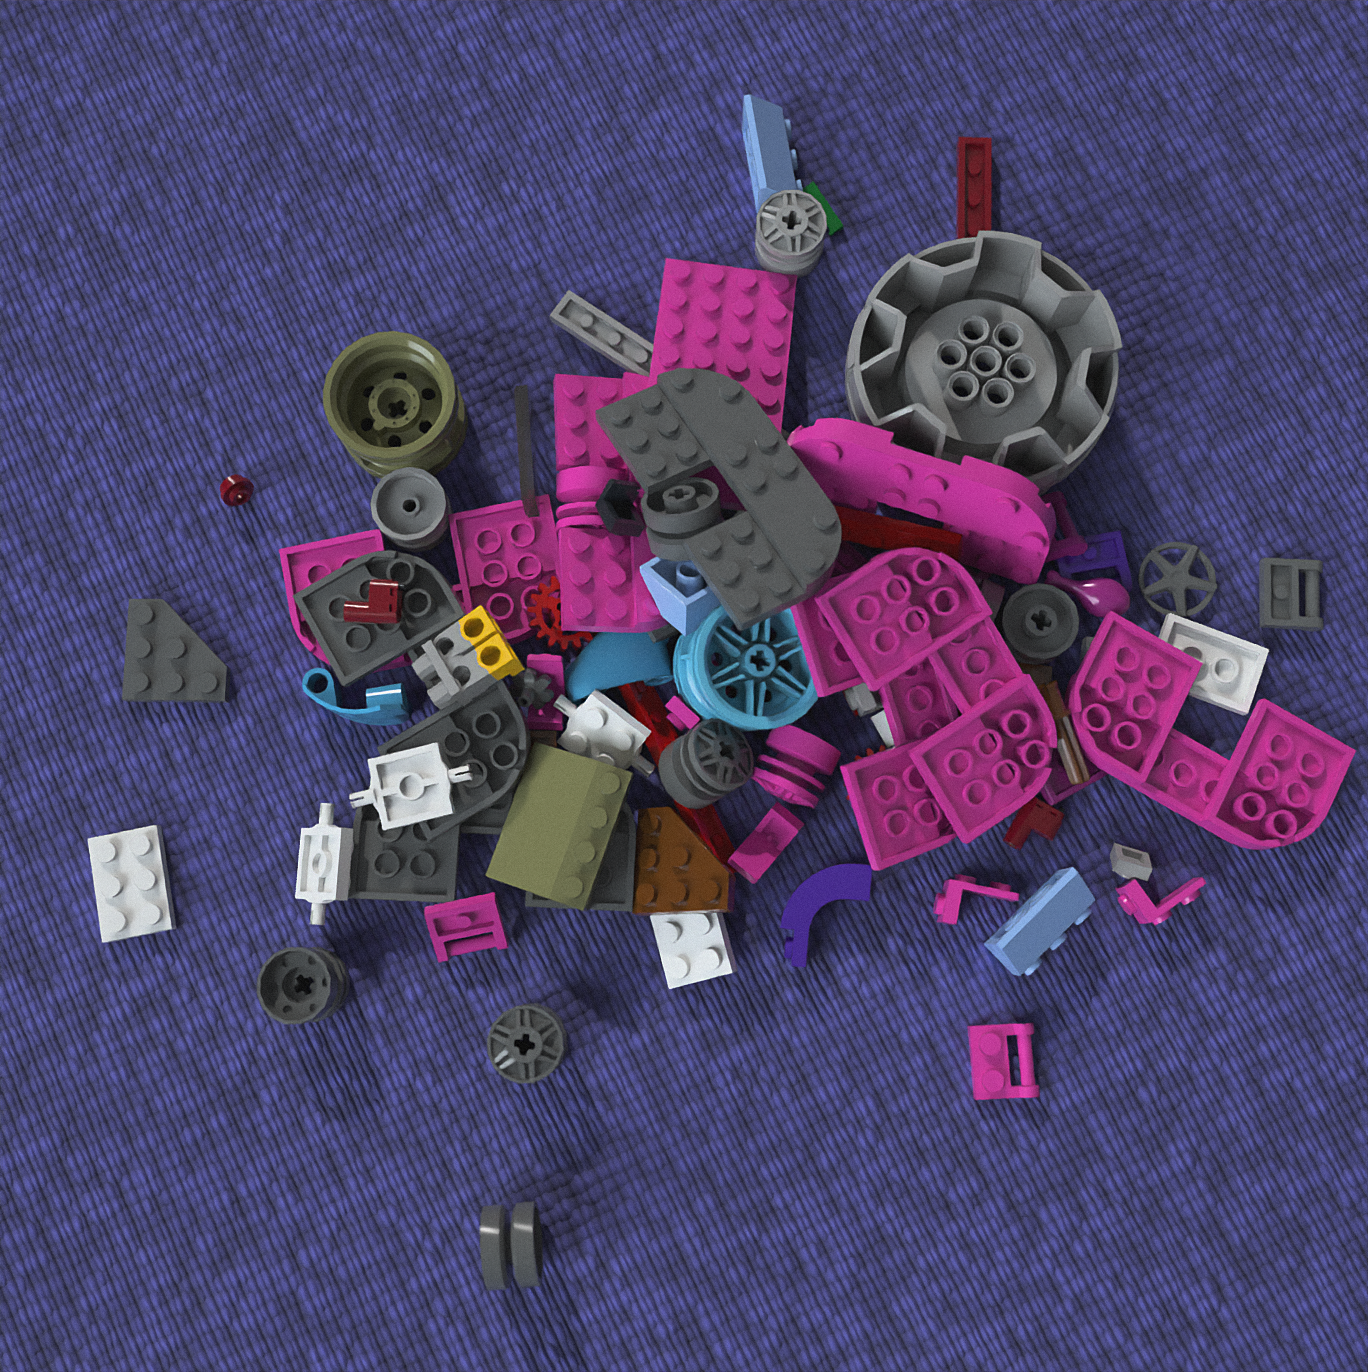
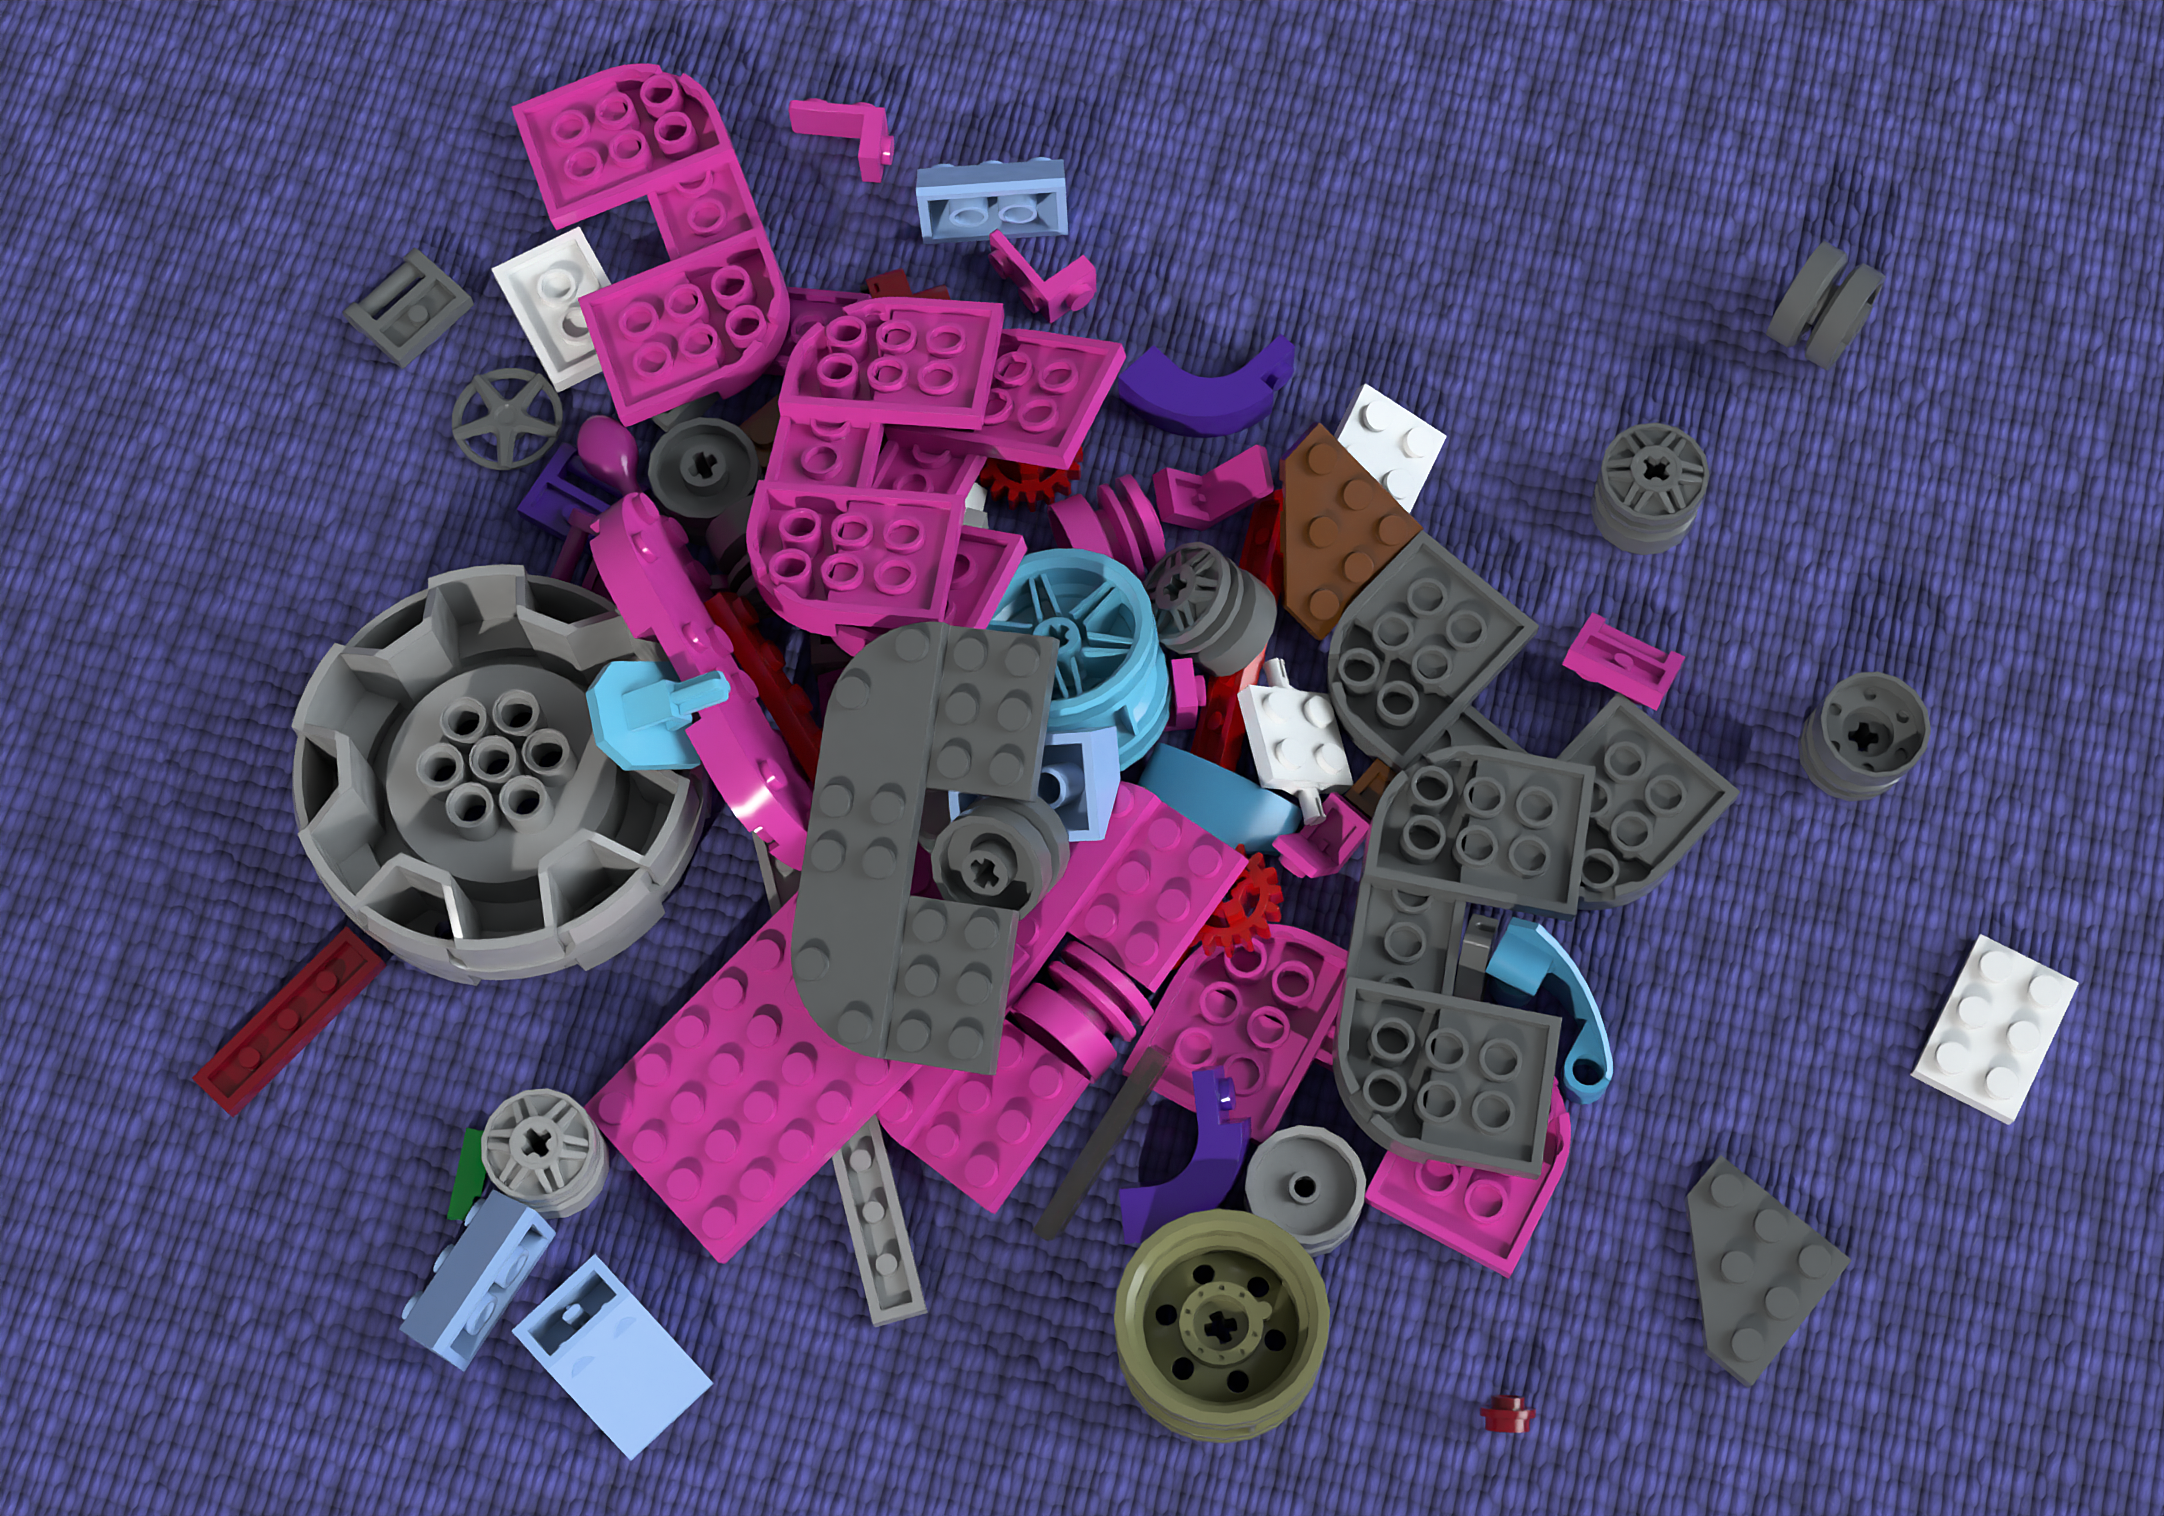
camera: 140 degrees left, 10 degrees down
(324, 863) = (1739, 854): white plate -> none
(383, 604) = (1441, 1058): dark red piece -> none
(411, 786) = (1569, 829): white plate -> none
(415, 690) = (1475, 957): none -> dark grey piece
(464, 462) = (1210, 1175): none -> dark purple arch
(467, 659) = (1405, 918): light grey hips -> none
(531, 689) = (1337, 849): dark grey plant -> none
(560, 825) = (1428, 665): olive slope -> none
(617, 508) = (1064, 941): black bracket -> none
(676, 179) = (612, 1357): none -> light blue slope
(921, 420) = (643, 713): none -> medium azure piece
(991, 1061) = (1163, 123): dark pink plate -> none
(1066, 738) = (803, 316): reddish brown axle -> none
(1130, 862) = (843, 184): light grey plate -> none

